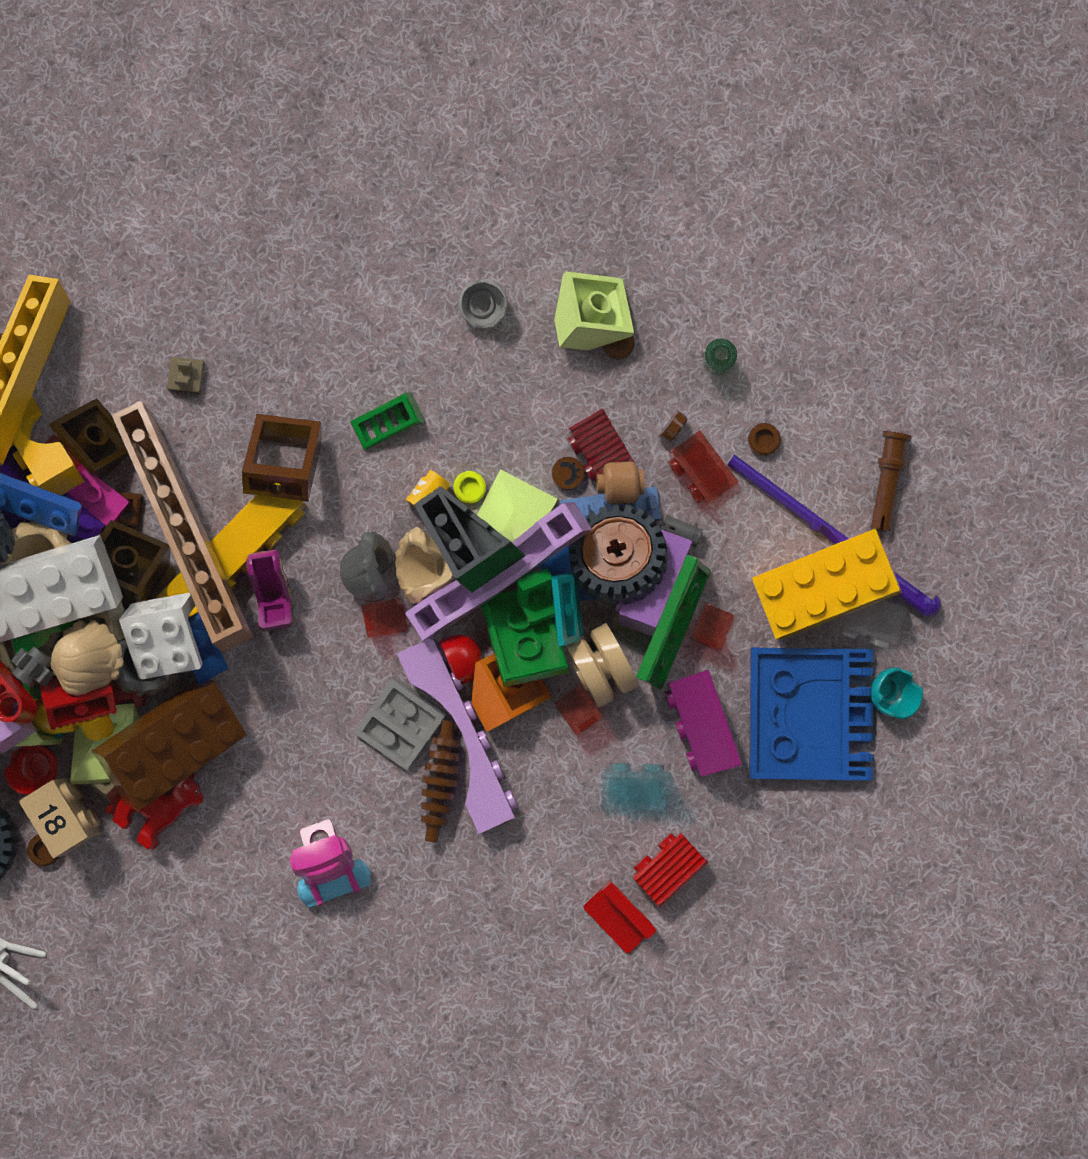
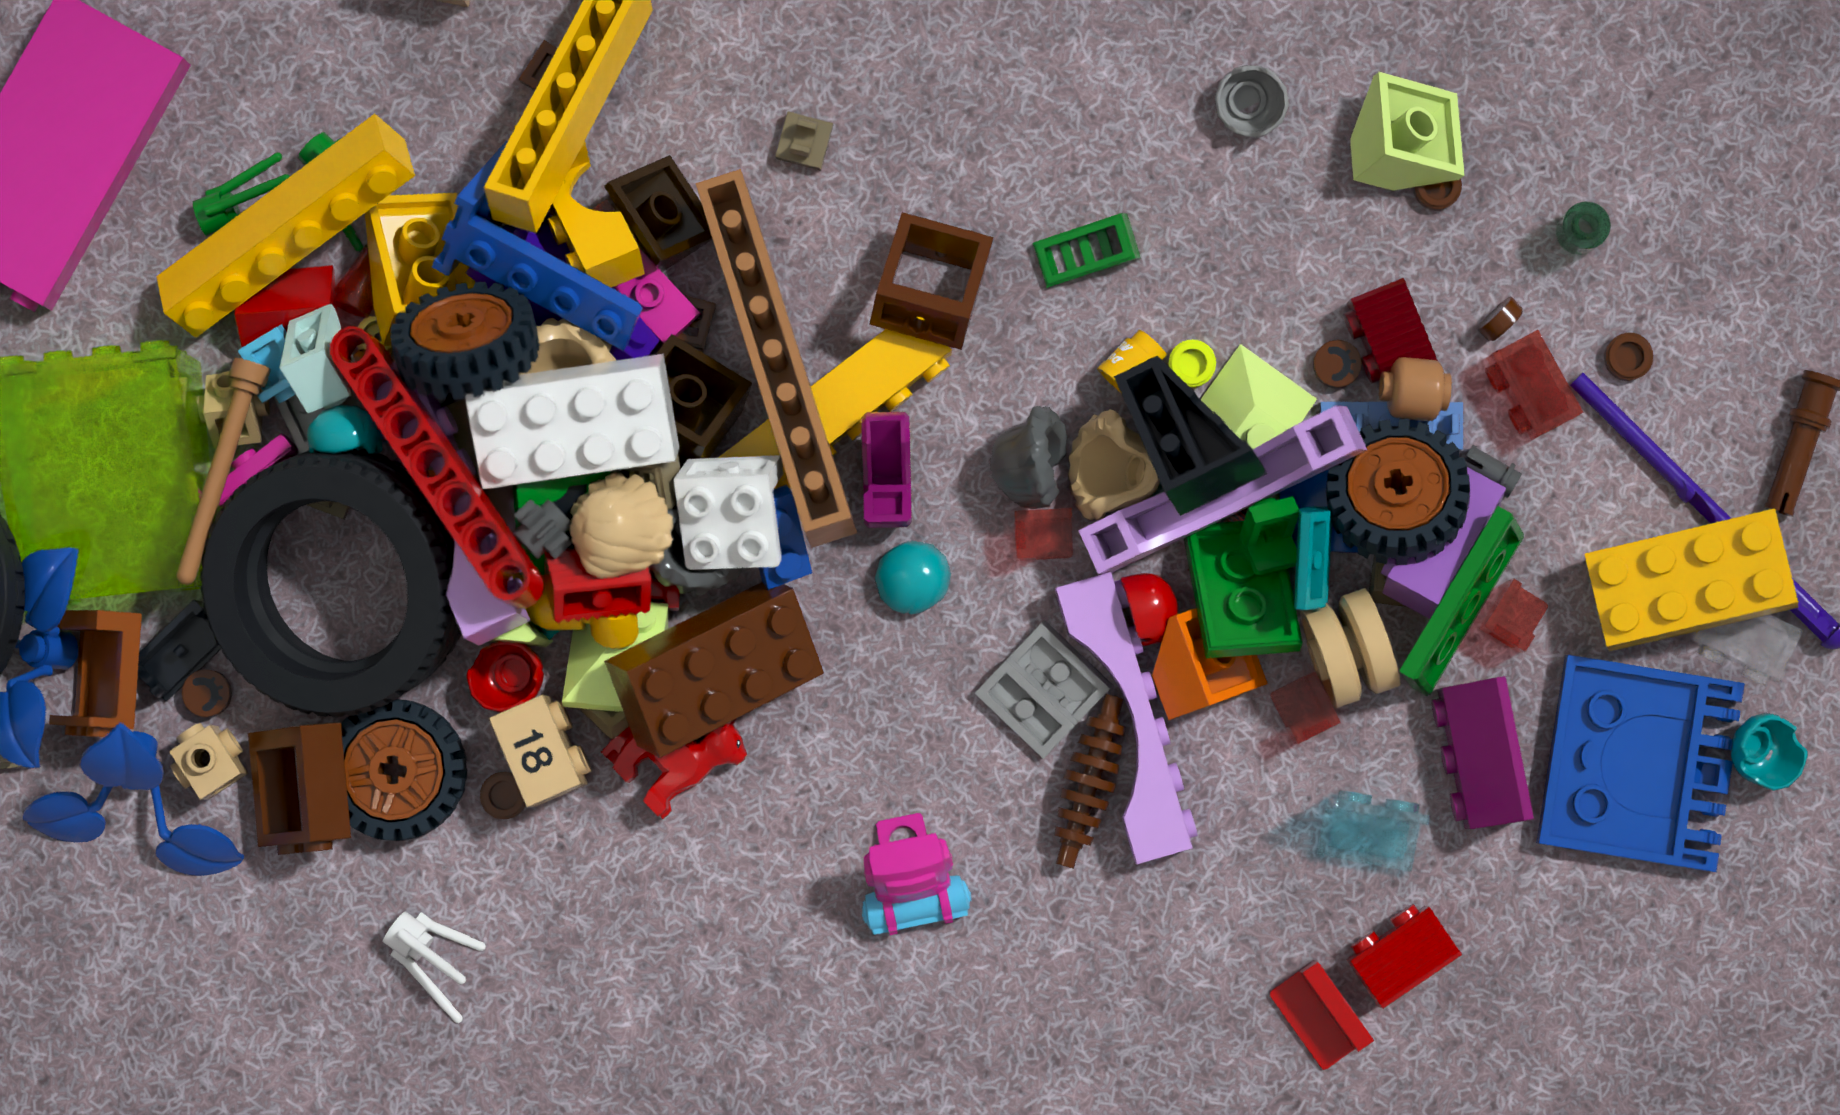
camera: 10 degrees right, 0 degrees up
(301, 660) = (912, 577): none -> teal hair

